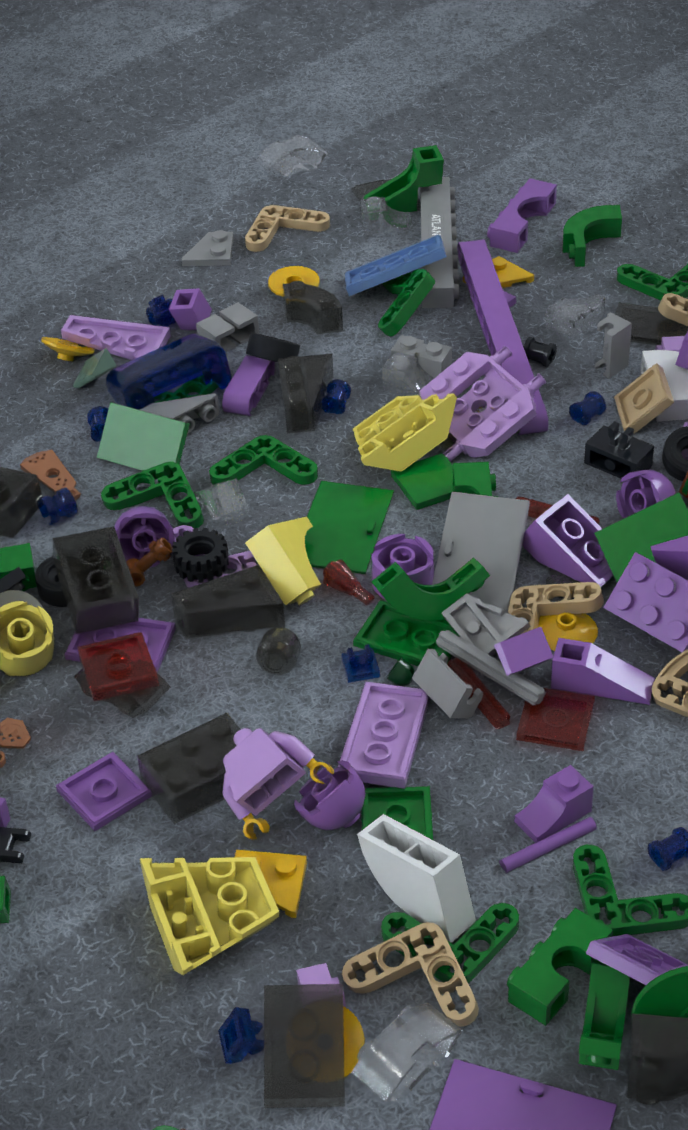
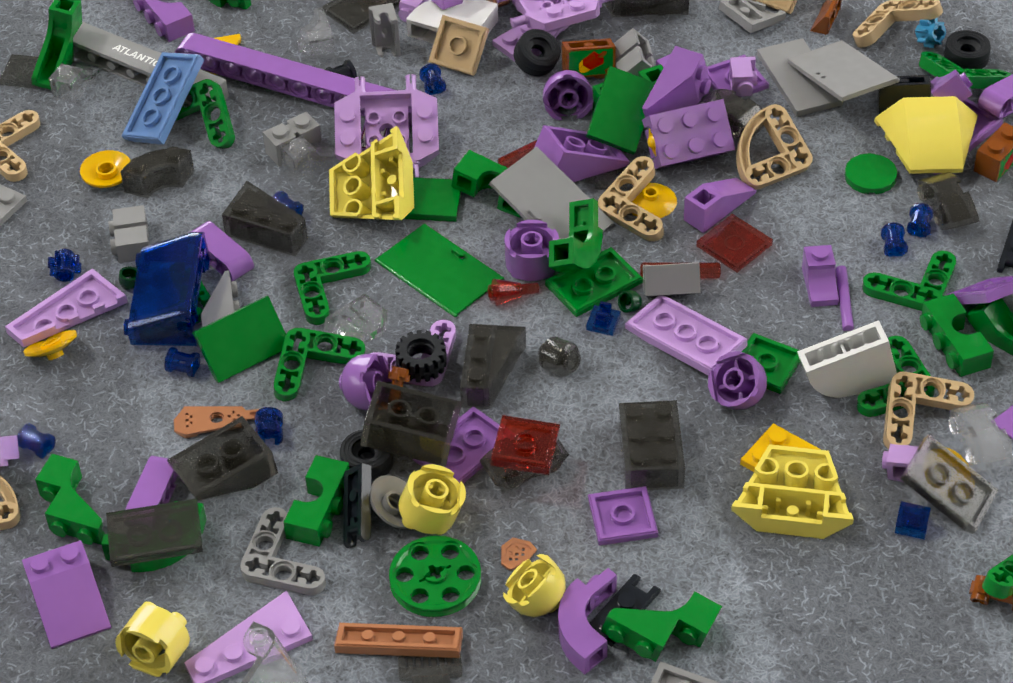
camera: 60 degrees left, 5 degrees up
(95, 368) = (112, 335): sand green slope -> none
(189, 308) = (87, 243): medium lavender brick -> none
(262, 770) = (705, 400): lavender torso -> none
(270, 347) = (196, 214): black tyre -> none
(284, 559) = (469, 304): light yellow arch -> none
(483, 623) = (629, 234): light grey wing -> none
(490, 667) = (669, 249): light grey axle -> none
(524, 651) = (683, 217): medium lavender slope -> none
(618, 451) = (501, 86): black brick -> none

